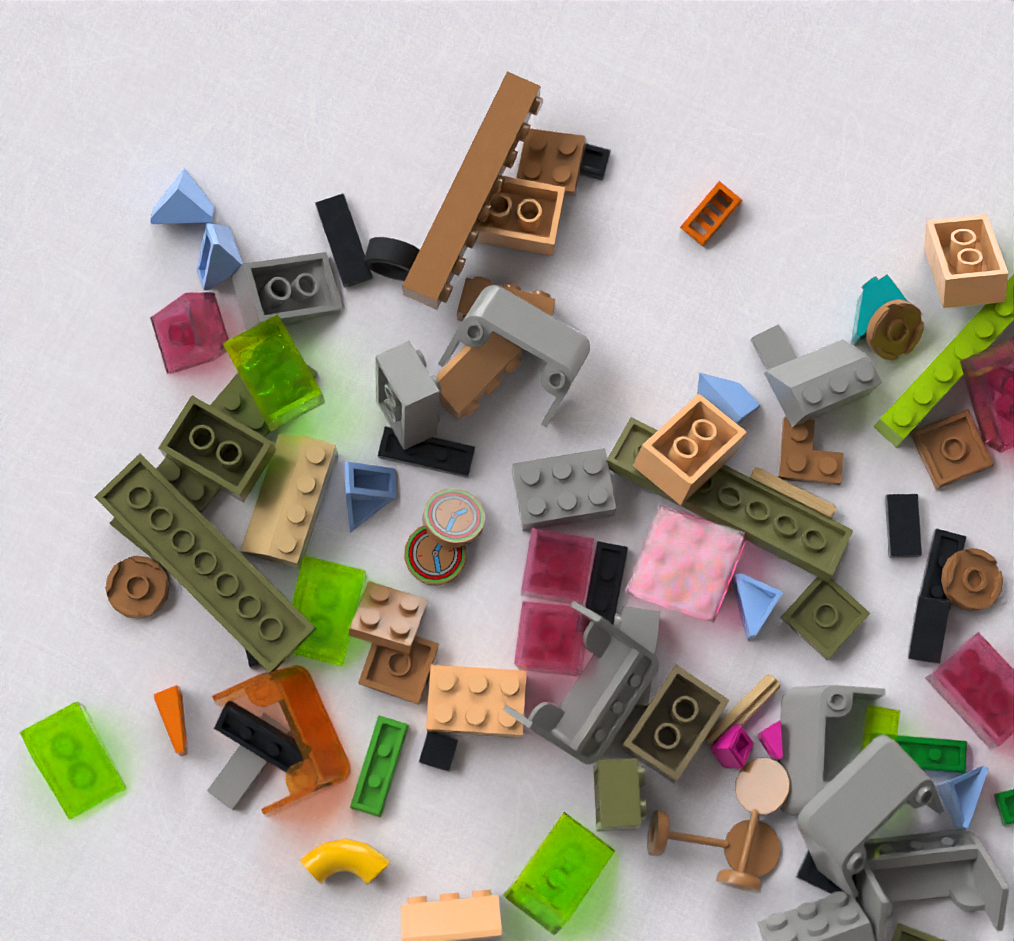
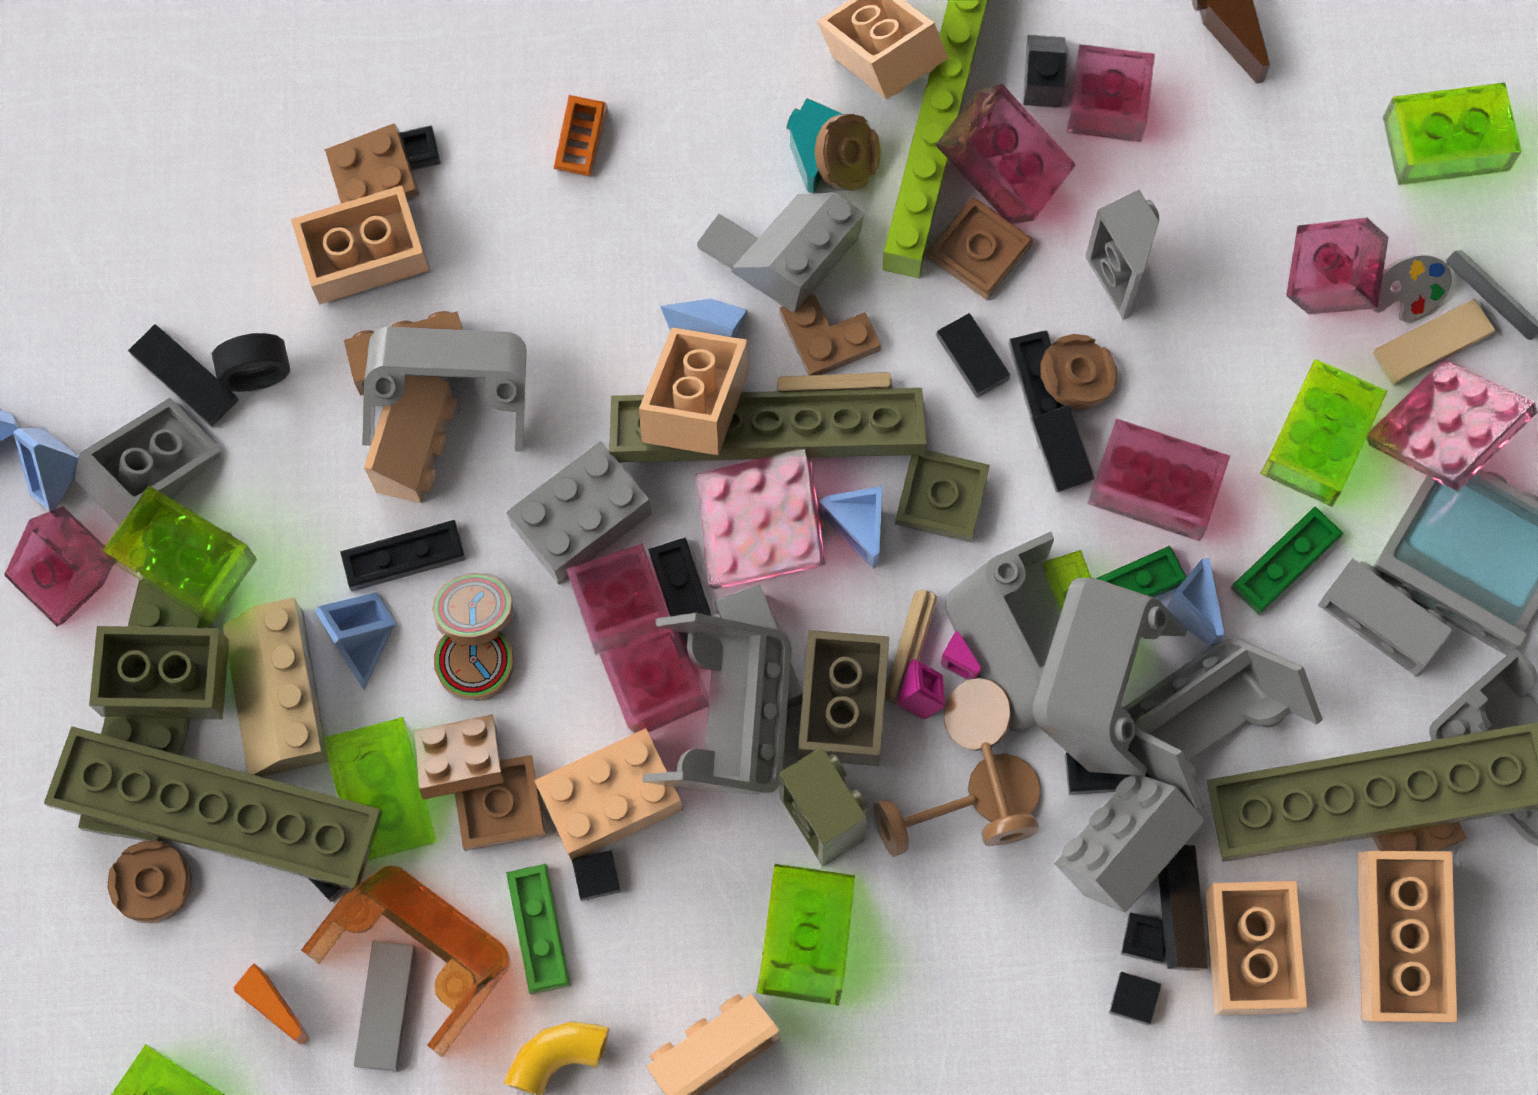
camera: 25 degrees left, 5 degrees down
(258, 736) = (380, 969): black tile -> none
(407, 394) = (346, 497): light grey brick -> none
(472, 190) = (299, 241): medium nougat brick -> none

